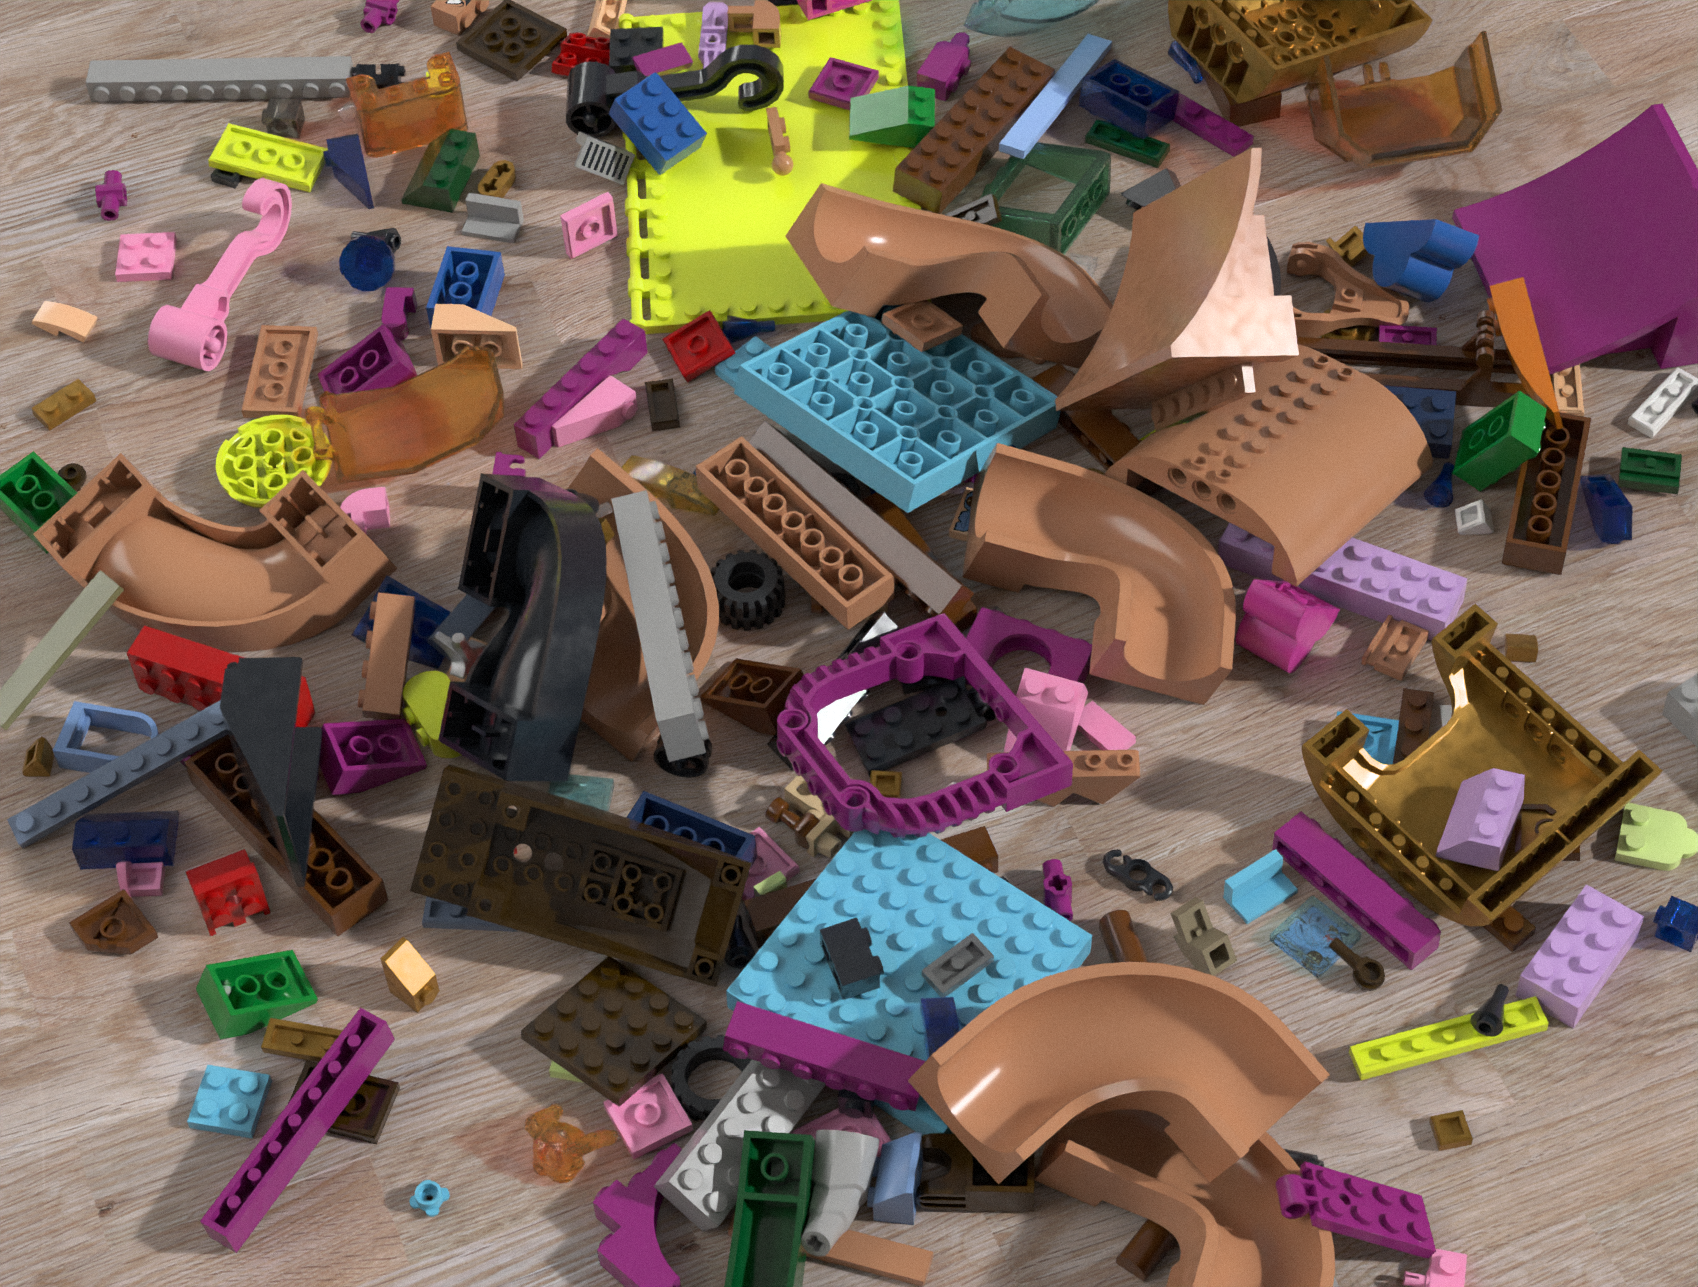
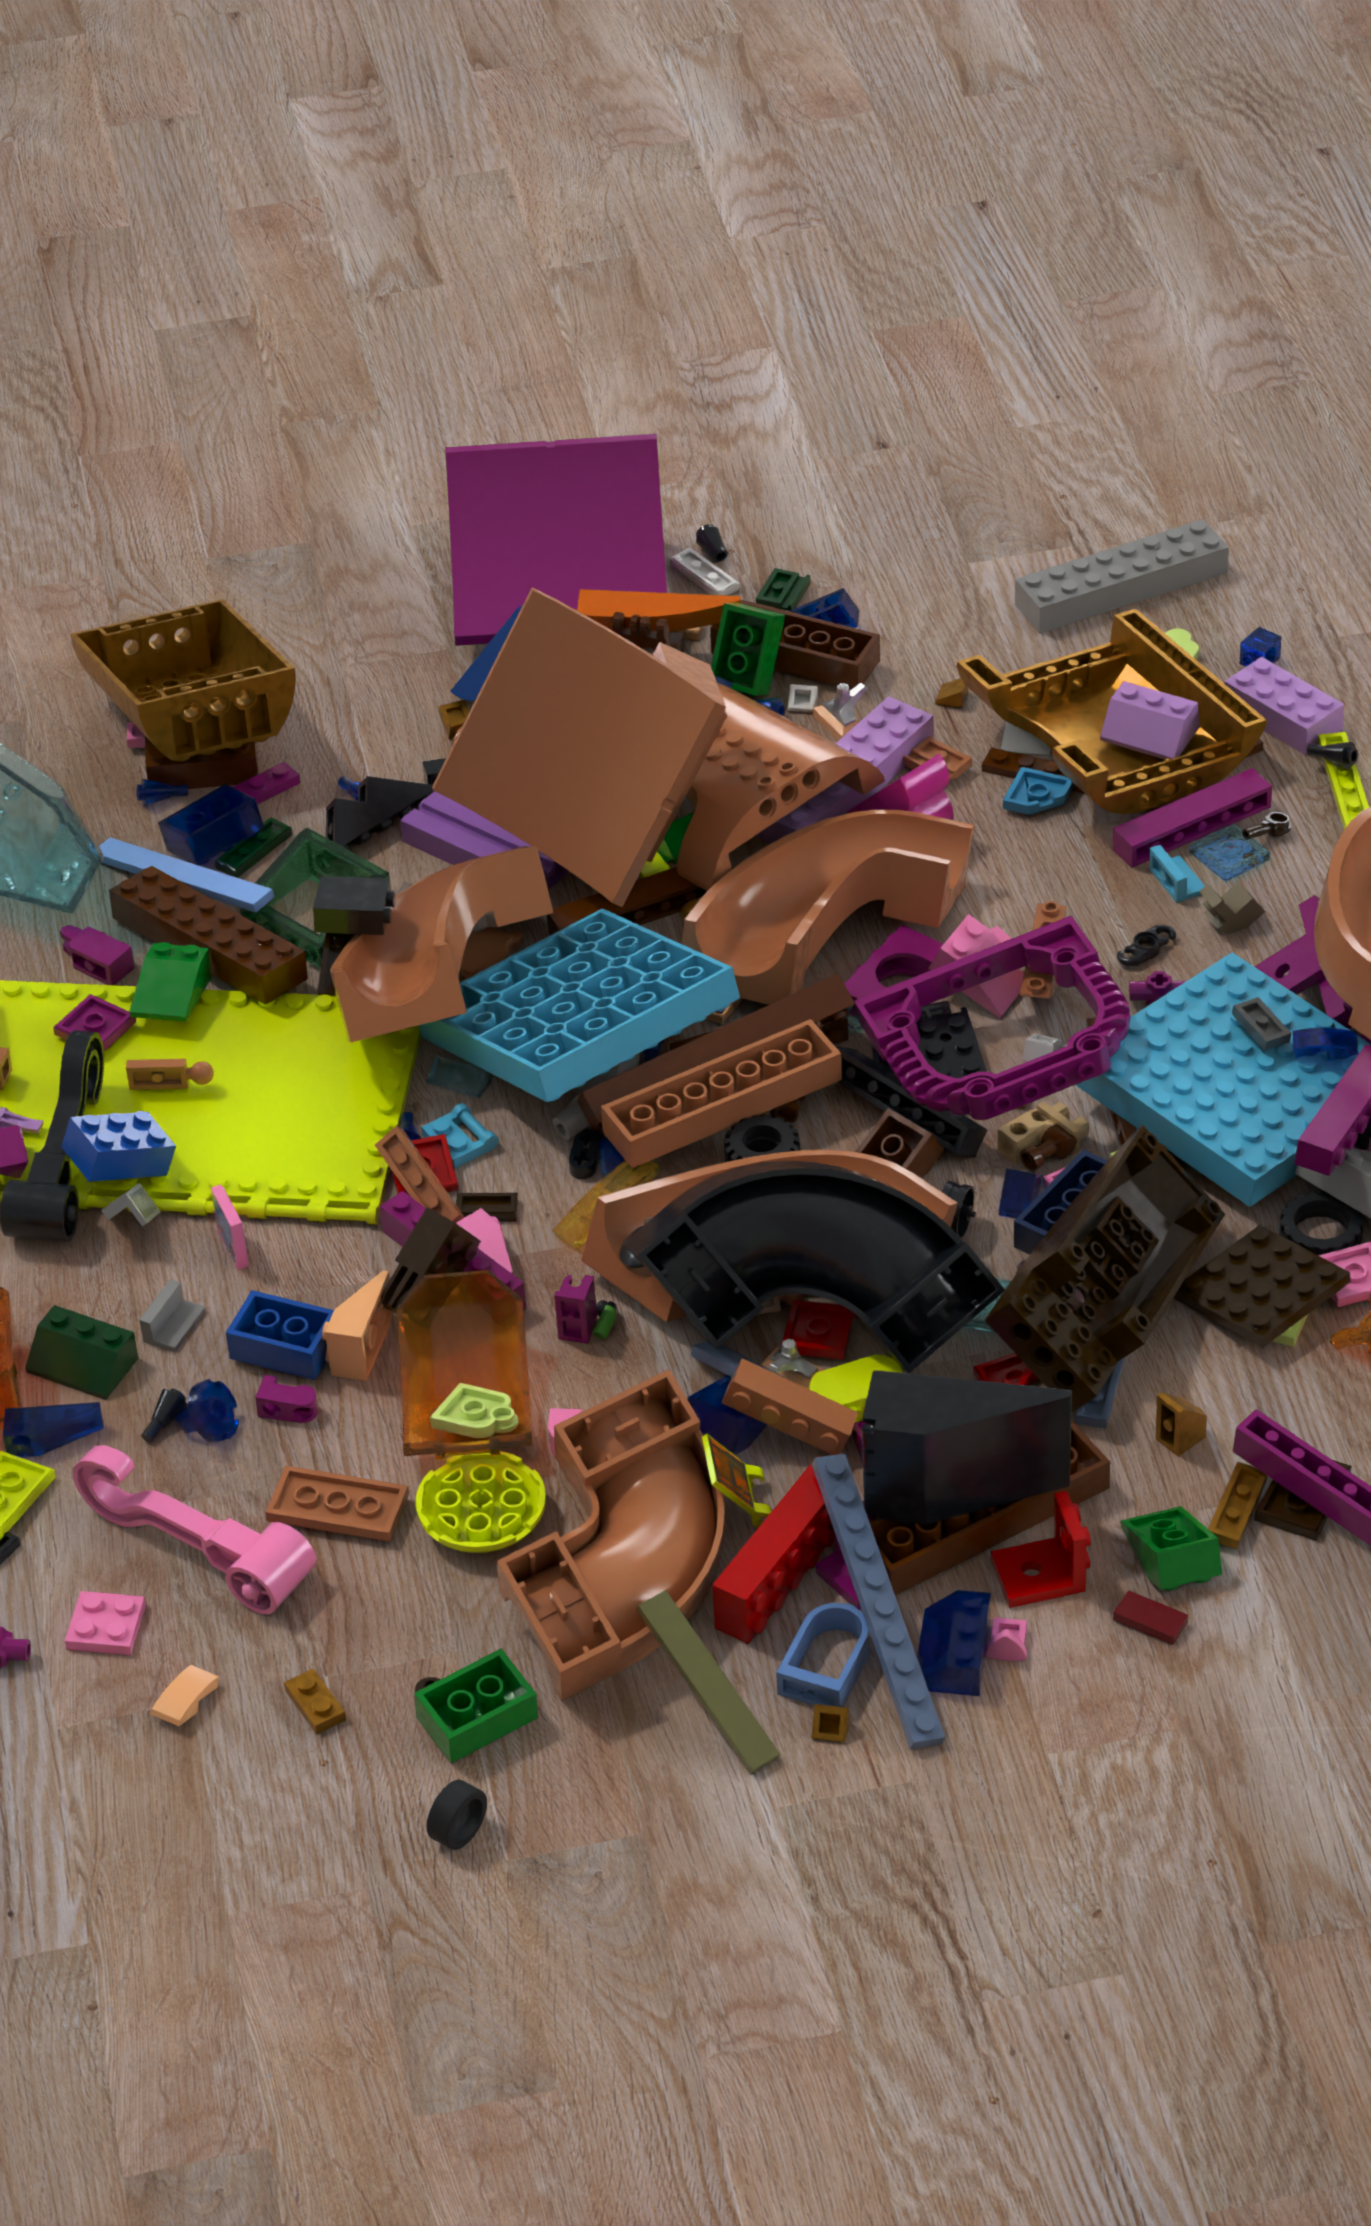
camera: 80 degrees left, 10 degrees down
(114, 926) = (1066, 1657): reddish brown plate -> none
(171, 989) = (1150, 1617): none -> dark red tile
(229, 1101) = (1290, 1576): medium azure plate -> none
(296, 623) = (734, 1478): none -> flag
(370, 364) = (368, 1426): magenta slope -> none
(376, 436) = (475, 1412): none -> yellowish green plate
(492, 180) = (115, 1310): pearl gold beam -> none
(535, 359) = (432, 1248): none -> dark brown brick
(659, 626) = (901, 1155): light grey brick -> none
(672, 336) = (416, 1174): none -> nougat plate
(739, 808) = (1018, 1192): none -> clear blue slope
(850, 958) = (1246, 1084): black brick -> none
(922, 324) = (490, 976): nougat plate -> none
(986, 202) = (353, 905): none -> black brick
(1121, 937) = (1205, 957): reddish brown brick -> none
(1406, 117) = (333, 624): clear orange windscreen -> none
(1449, 550) = (838, 714): none -> flat silver piece

